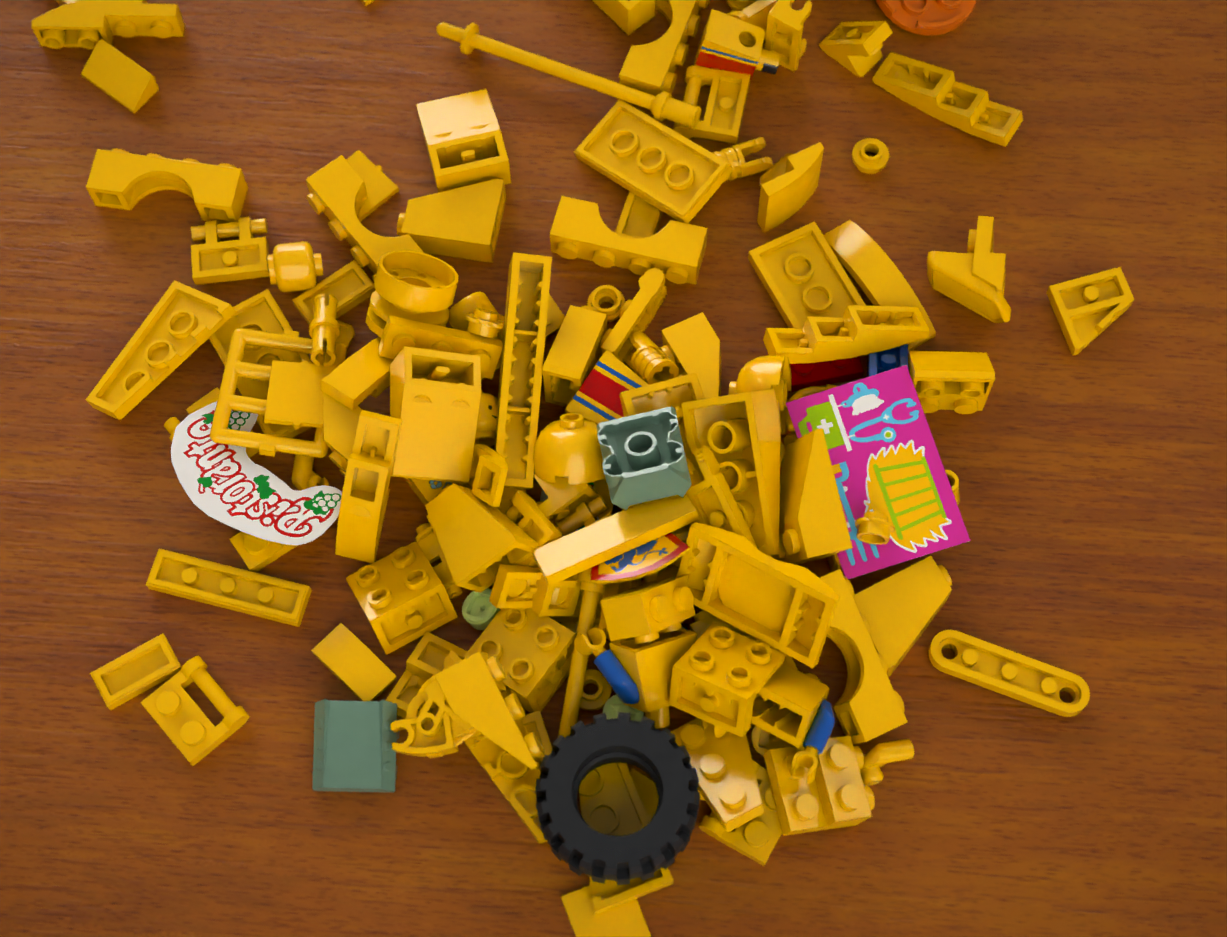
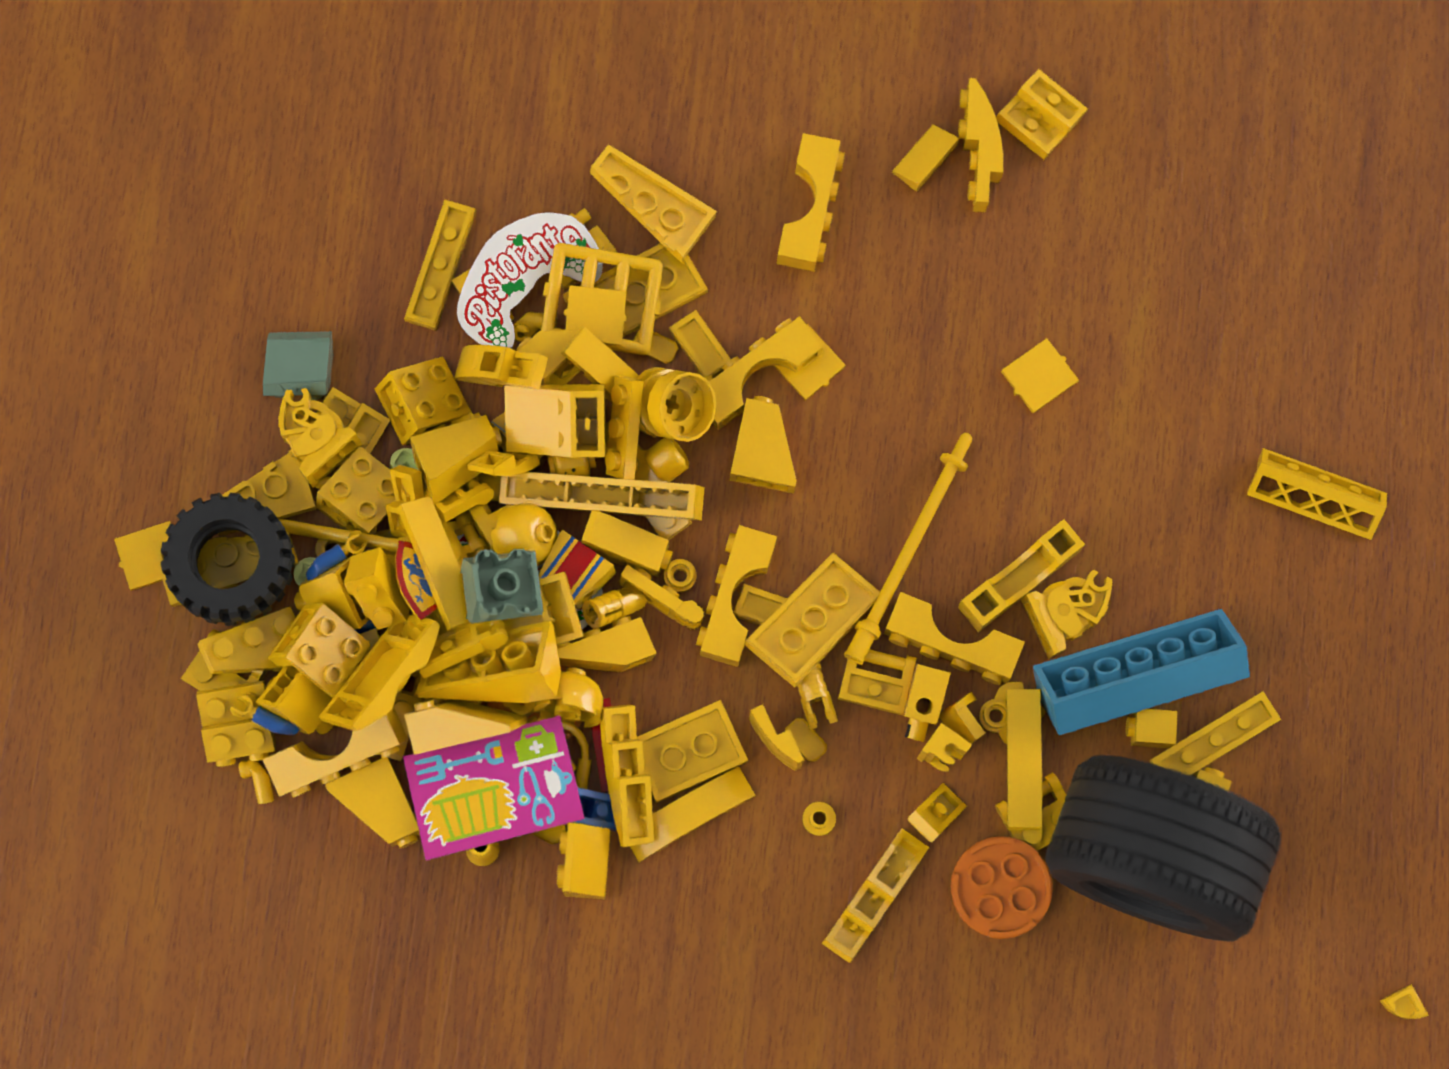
camera: 85 degrees right, 10 degrees up
(136, 671) = (374, 196): yellow tile -> none
(183, 718) = (331, 234): yellow plate -> none
(229, 259) = (736, 257): yellow plate -> none
(294, 266) = (723, 310): yellow head -> none
(324, 329) = (655, 334): yellow pin -> none
(354, 664) = (365, 362): yellow slope -> none
(463, 140) = (845, 453): yellow slope -> none
(480, 699) = (302, 455): yellow slope -> none
(484, 323) = (646, 464): yellow plate -> none
(874, 528) = (438, 778): yellow plate -> none
(973, 277) = (677, 899): yellow piece -> none
(1009, 673) = (321, 888): yellow plate -> none
(1089, 305) = (655, 1000): yellow wing -> none

